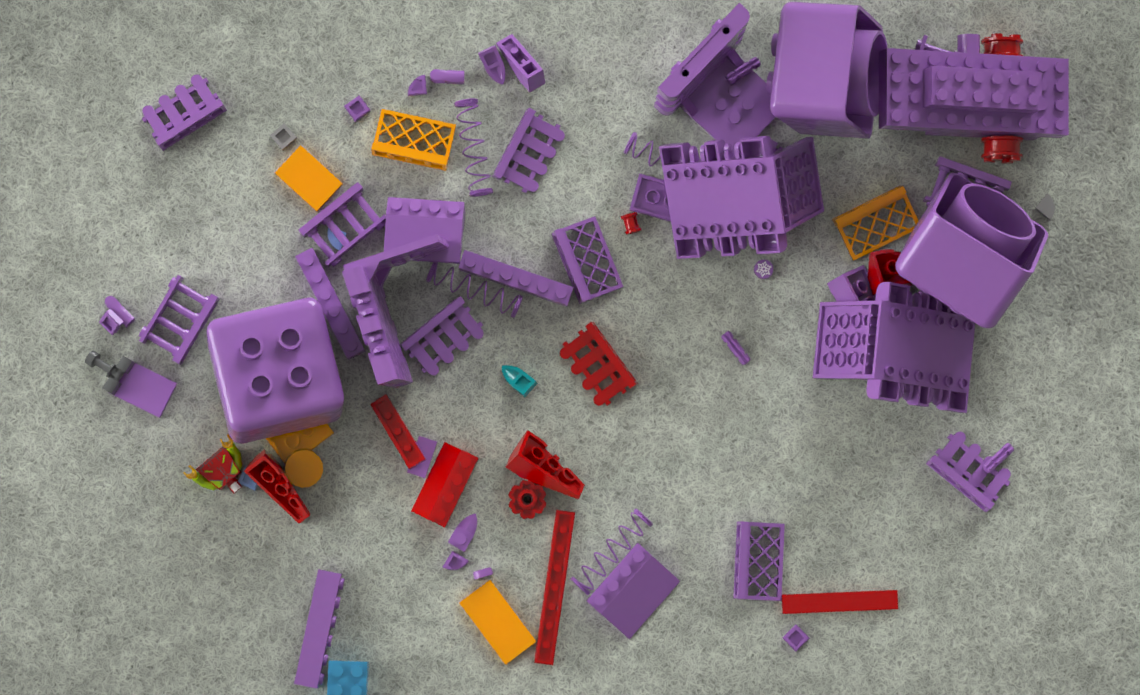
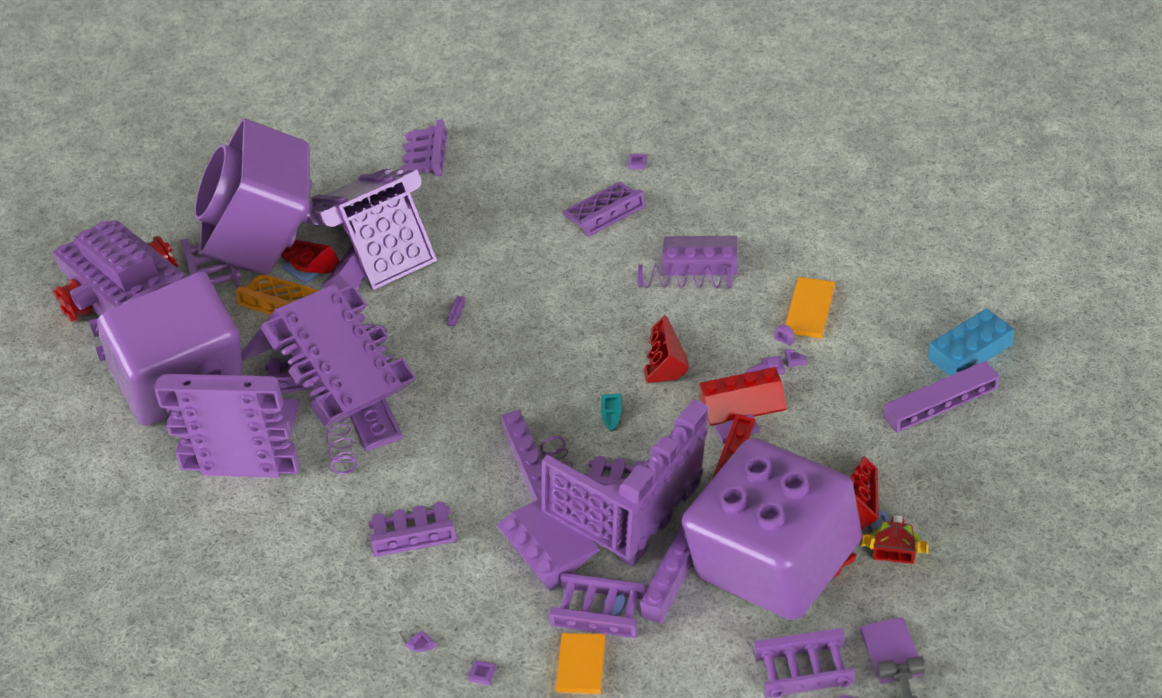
camera: 120 degrees left, 40 degrees down
(414, 155) = (486, 598): light orange fence -> none
(447, 76) = (392, 625): medium lavender bar -> none
(473, 102) = (402, 584): medium lavender piece -> none
(493, 64) = (351, 601): medium lavender plate -> none
(517, 503) = (700, 346): red plant -> none
(521, 63) = (334, 579): medium lavender slope -> none
(554, 587) = (746, 295): red tile -> none
(571, 265) = (482, 438): medium lavender fence -> none
(607, 369) = (538, 363): red fence -> none
(631, 223) = (413, 425): red bush -> none
(839, 601) = (588, 156): red tile -> none
(998, 458) = (401, 141): medium lavender axle -> none
(1046, 207) = (185, 223): light grey tile -> none

